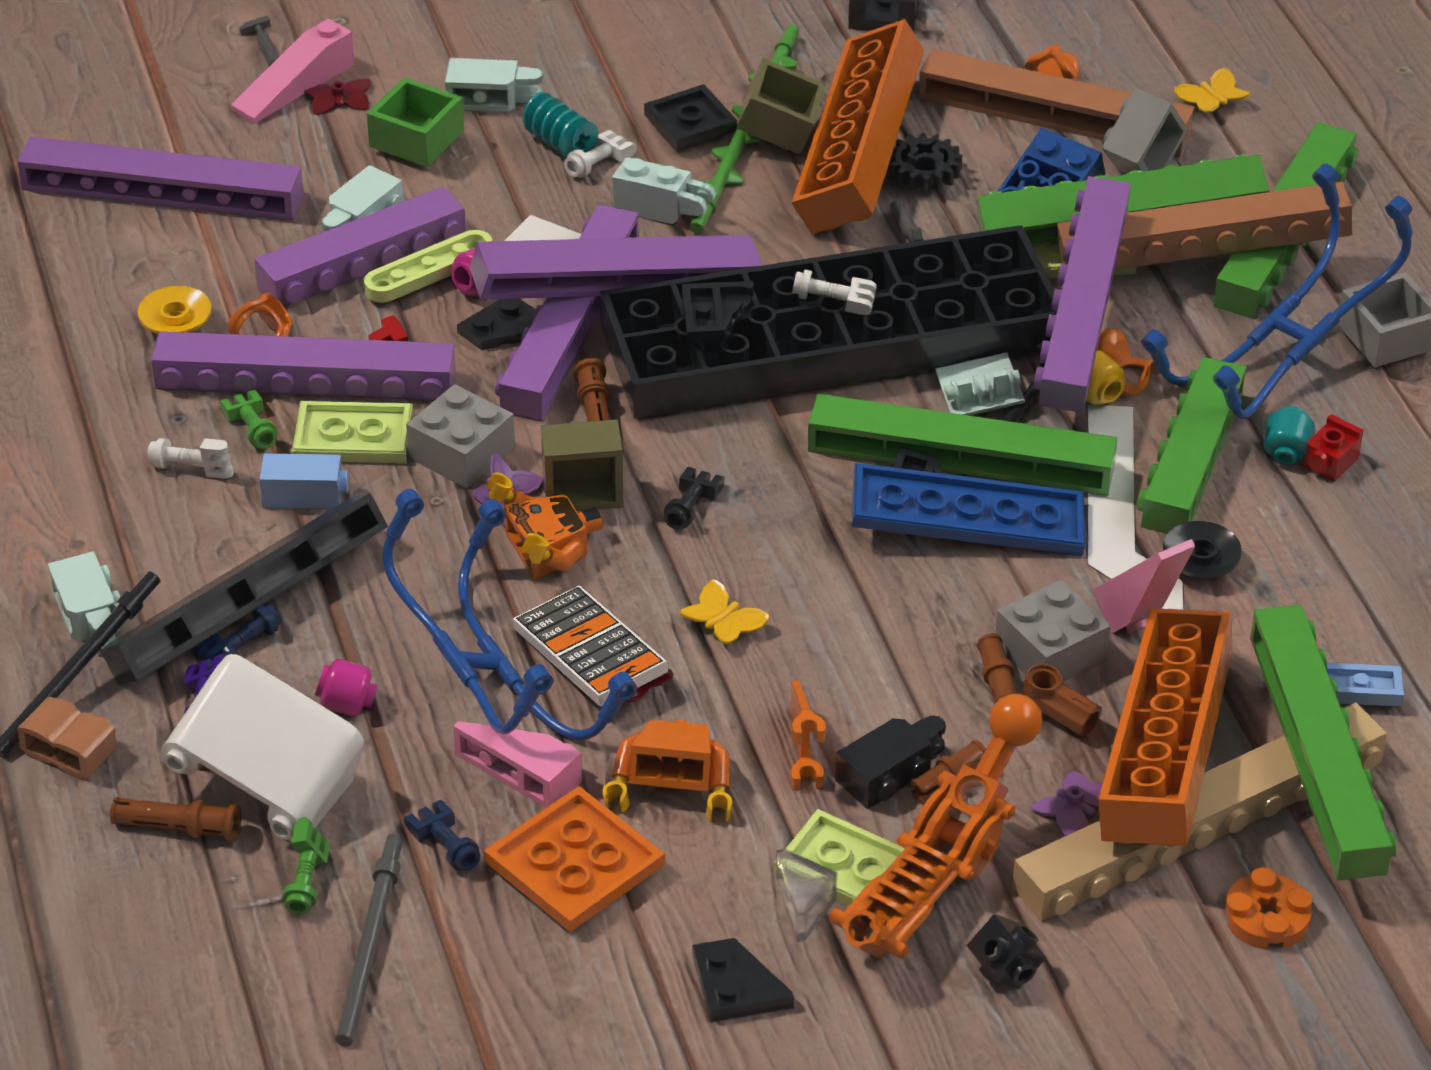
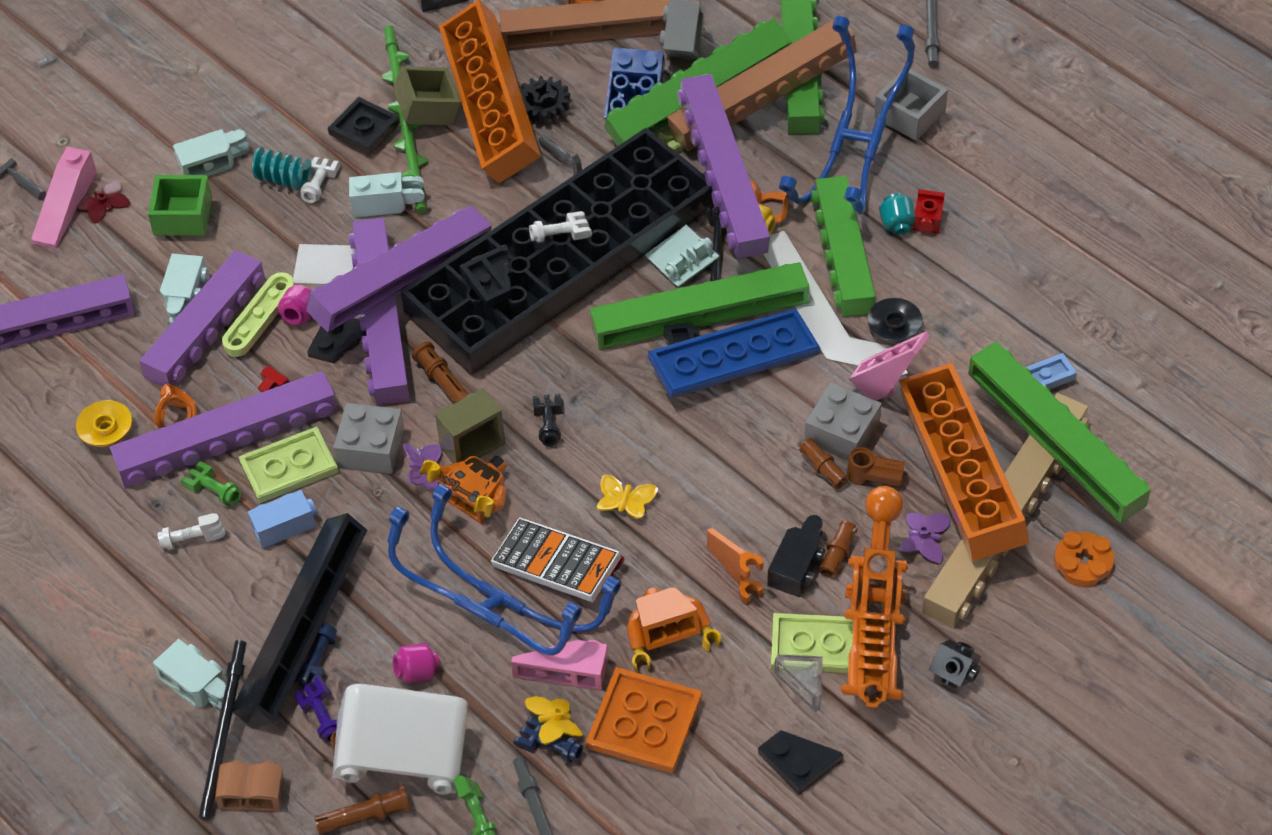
camera: 25 degrees left, 10 degrees up
(466, 811) = (556, 718): none -> yellow piece

